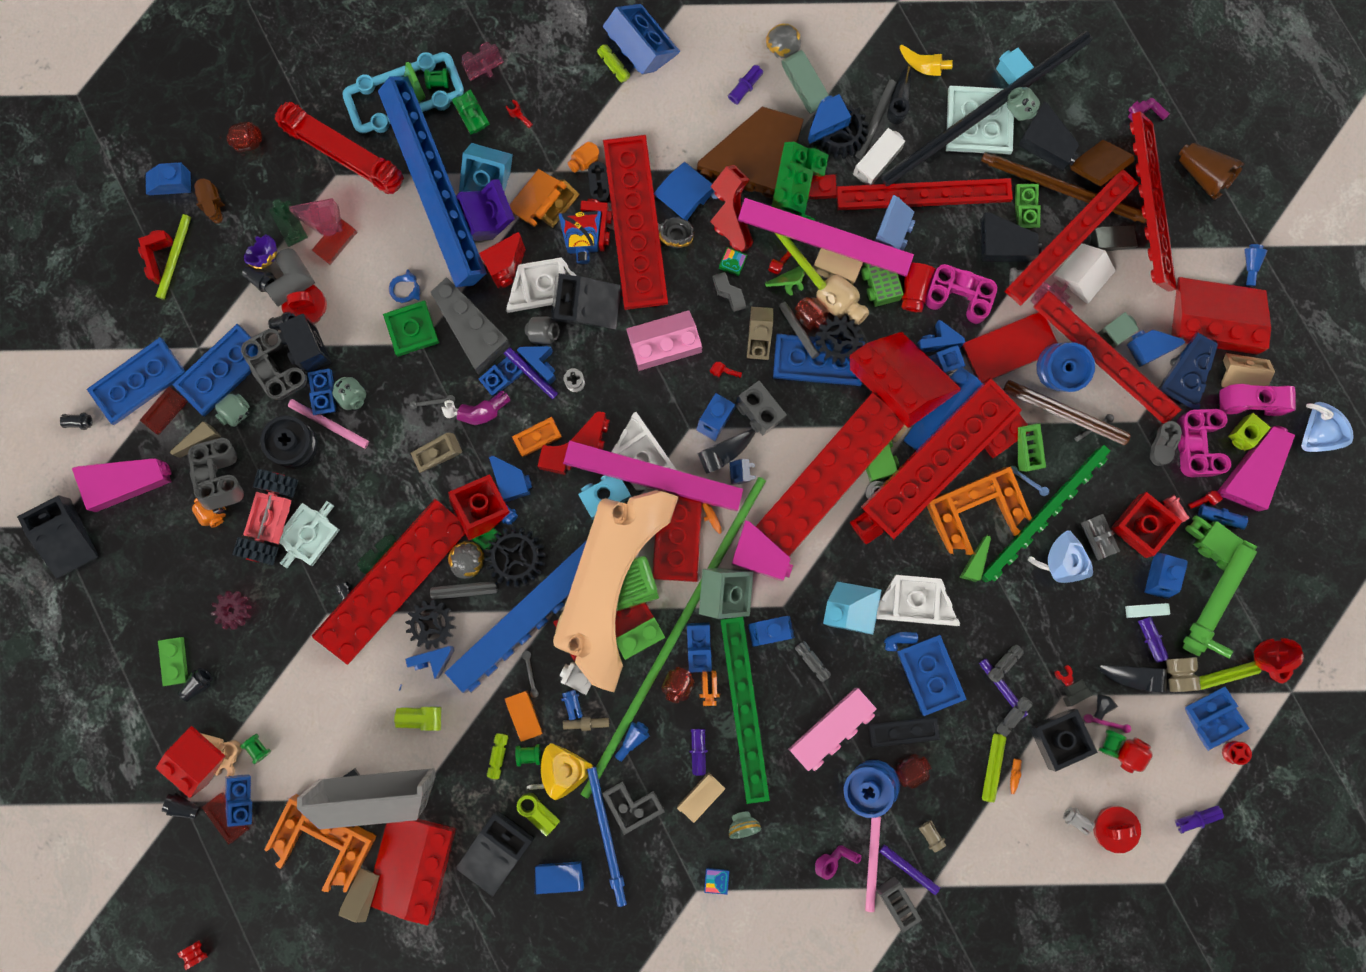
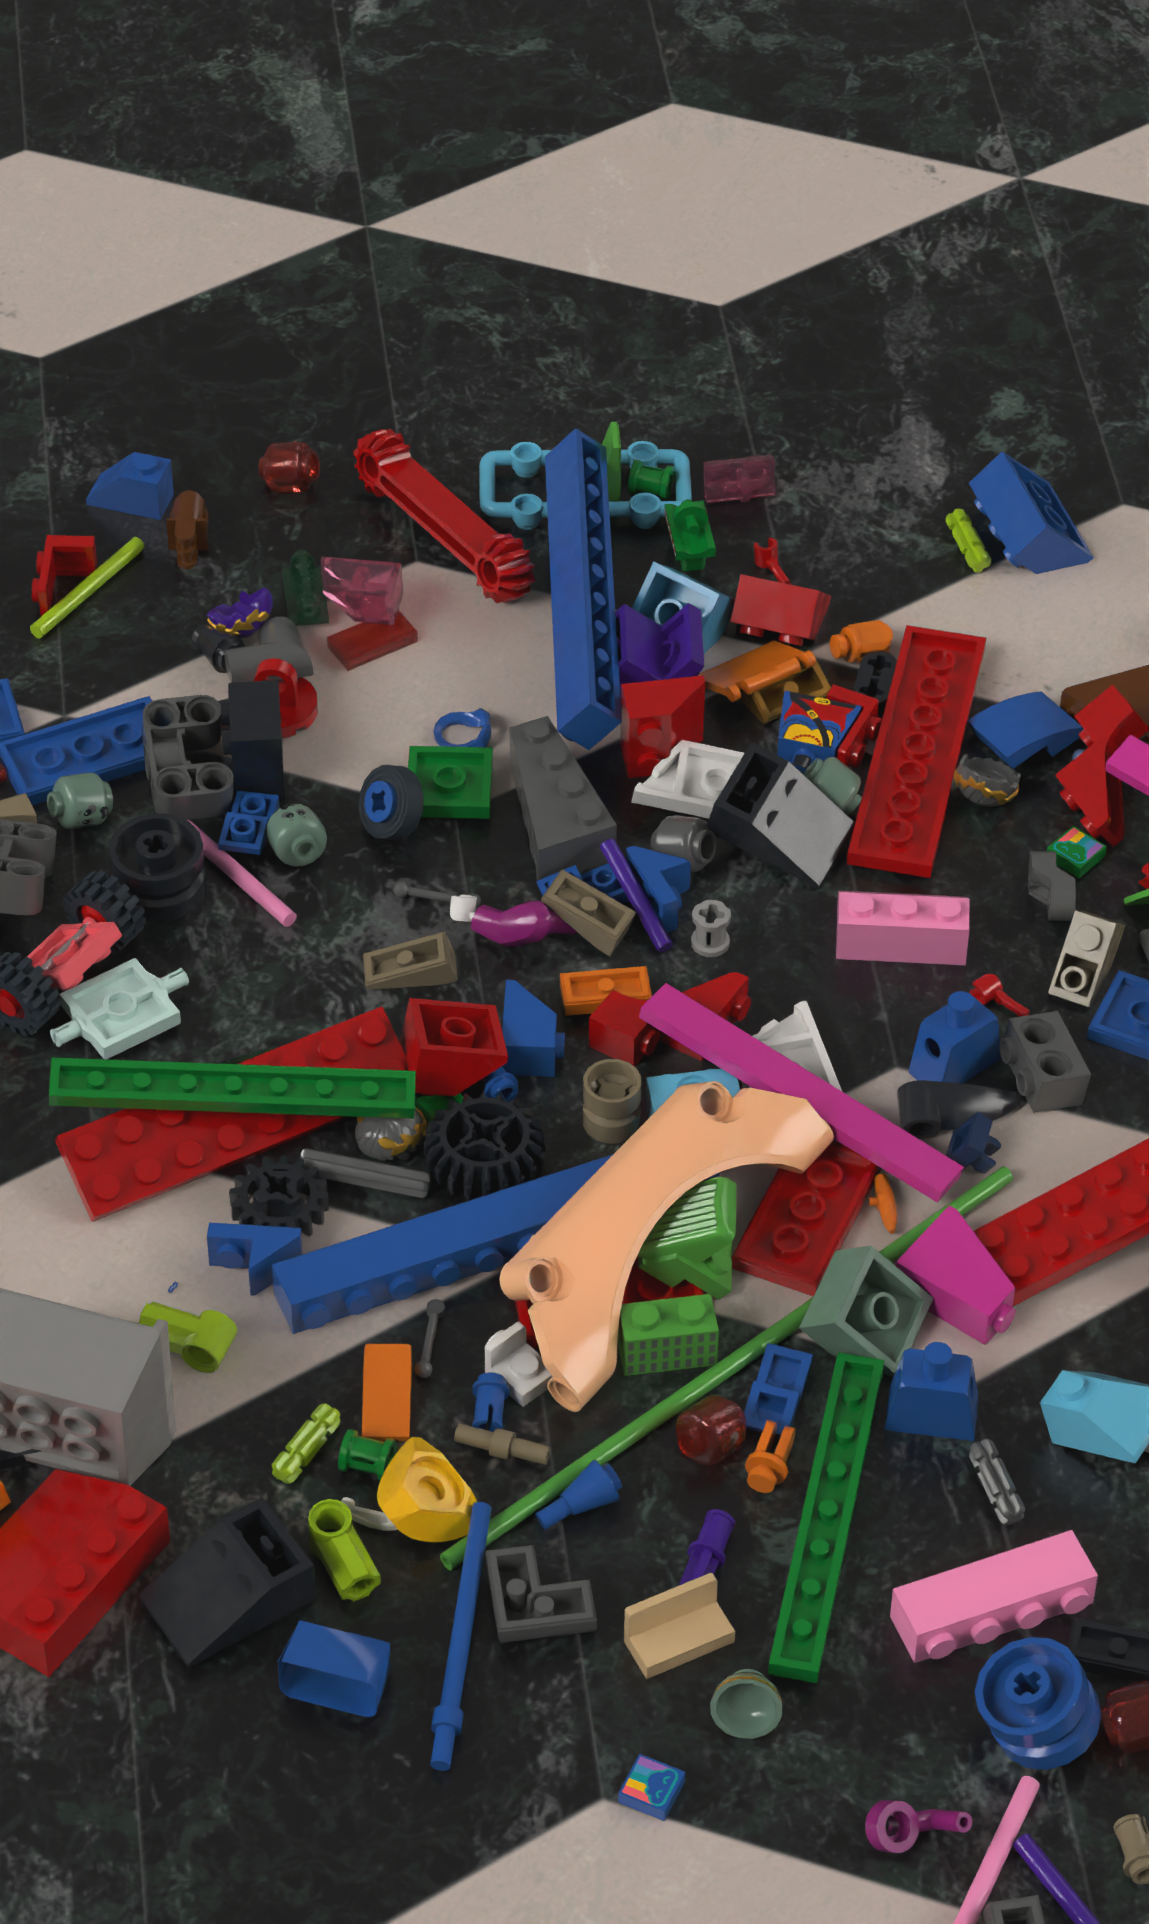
camera: 20 degrees right, 35 degrees down
(384, 584) = (232, 1088): none -> green plate
(388, 358) = (391, 802): none -> black wheel
(511, 394) = (589, 911): none -> dark tan slope
(534, 149) = (778, 608): none -> red slope
(565, 510) = (611, 1101): none -> dark tan wheel
(602, 268) = (836, 782): none -> sand green head

